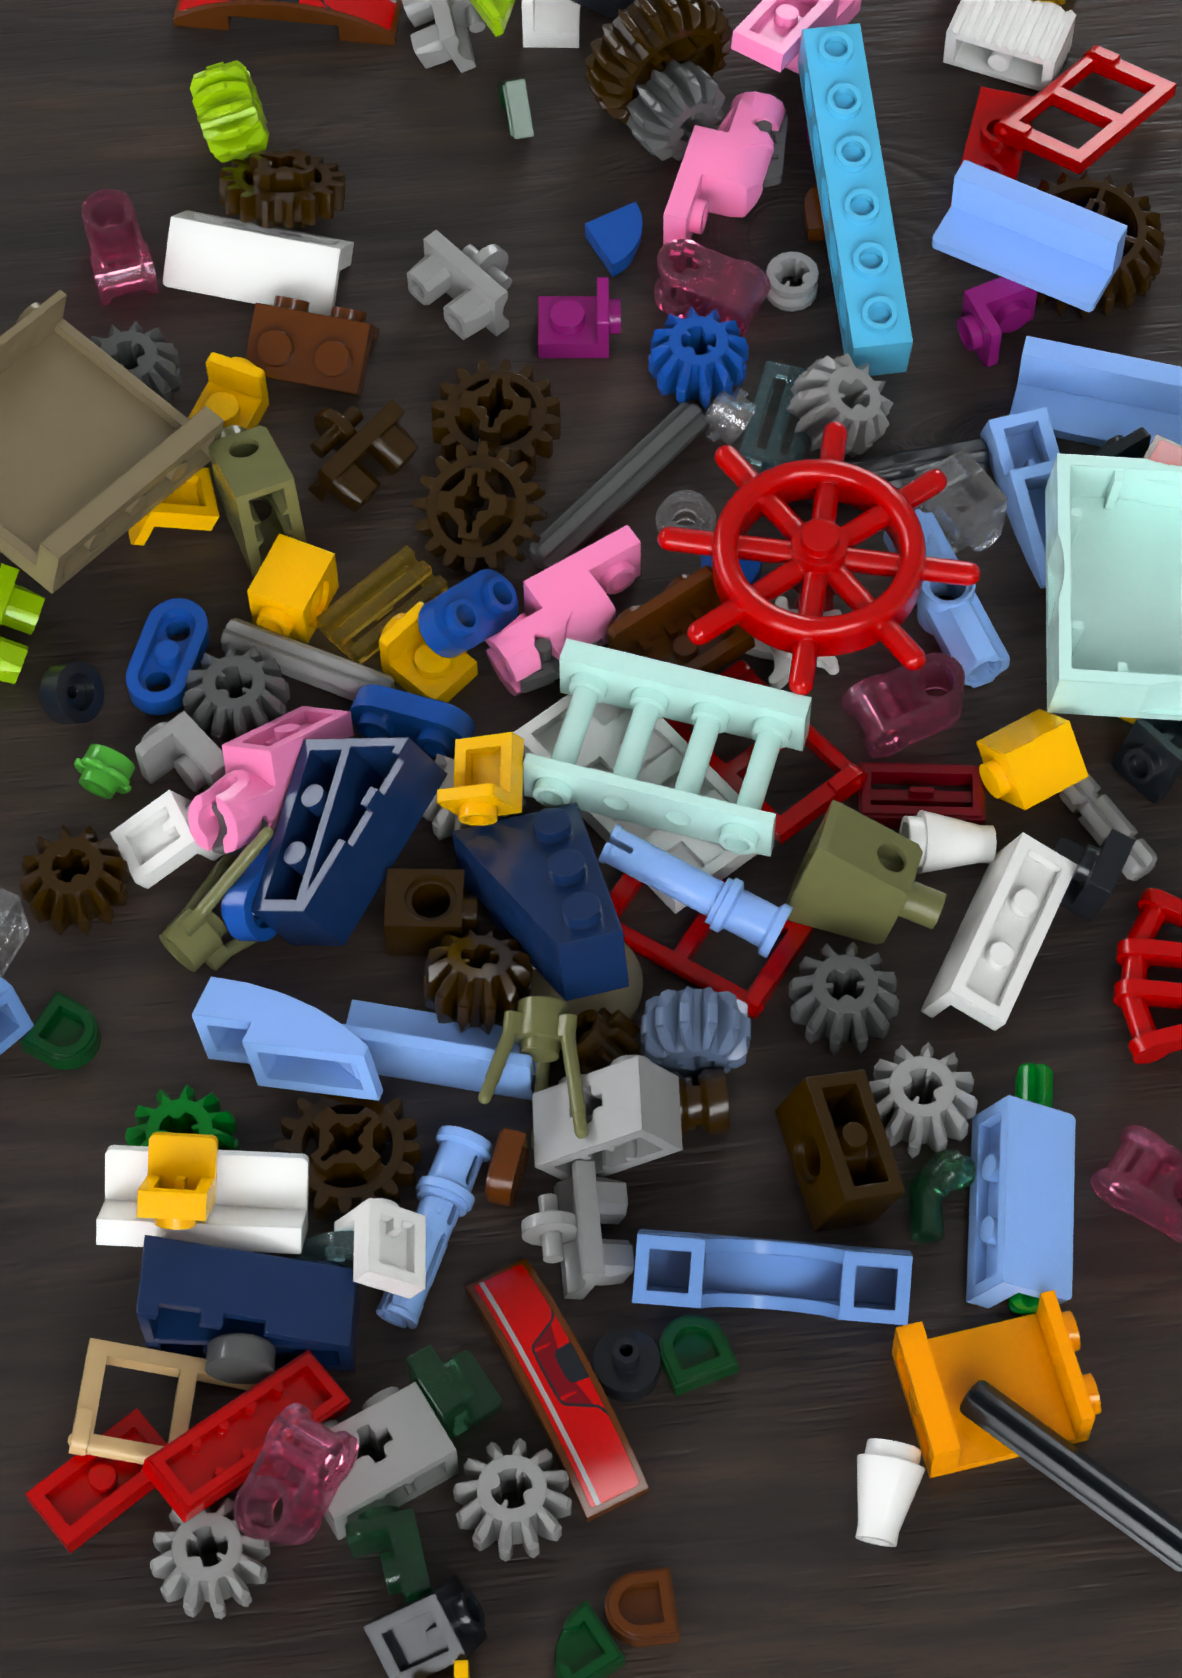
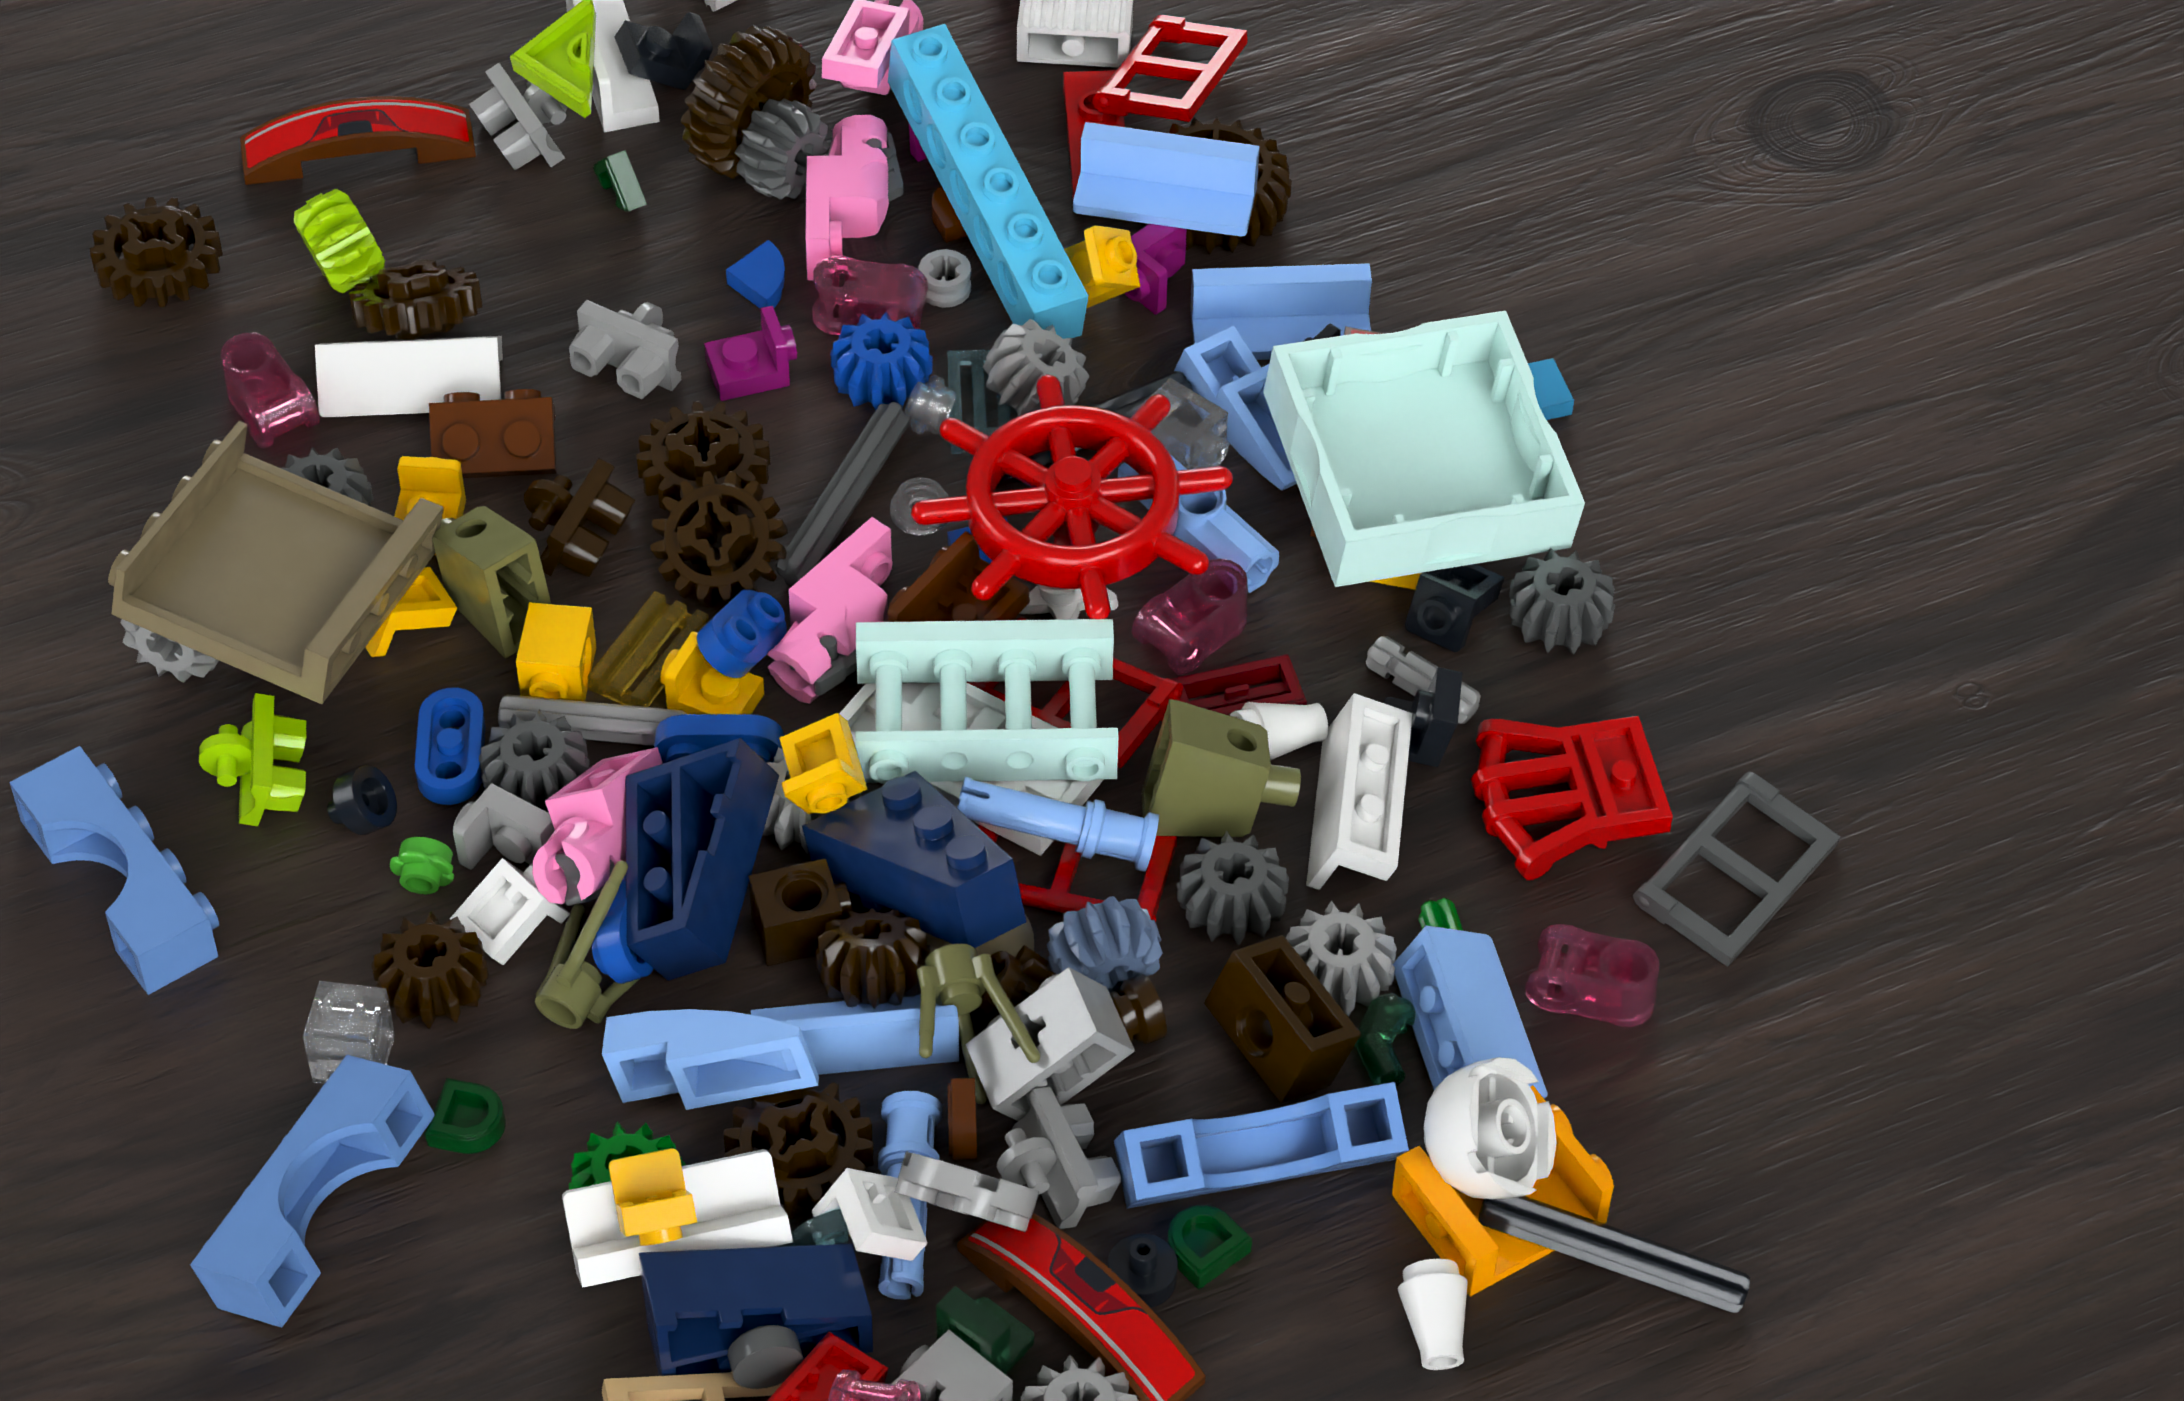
camera: 20 degrees left, 10 degrees down
(60, 83) = (156, 252): none -> dark brown gear
(478, 1250) = (966, 1191): none -> light grey plate
(941, 309) = (1105, 263): none -> yellow bracket
(991, 1330) = (1490, 1130): none -> white cylinder
(1031, 759) = (1333, 634): yellow brick -> none

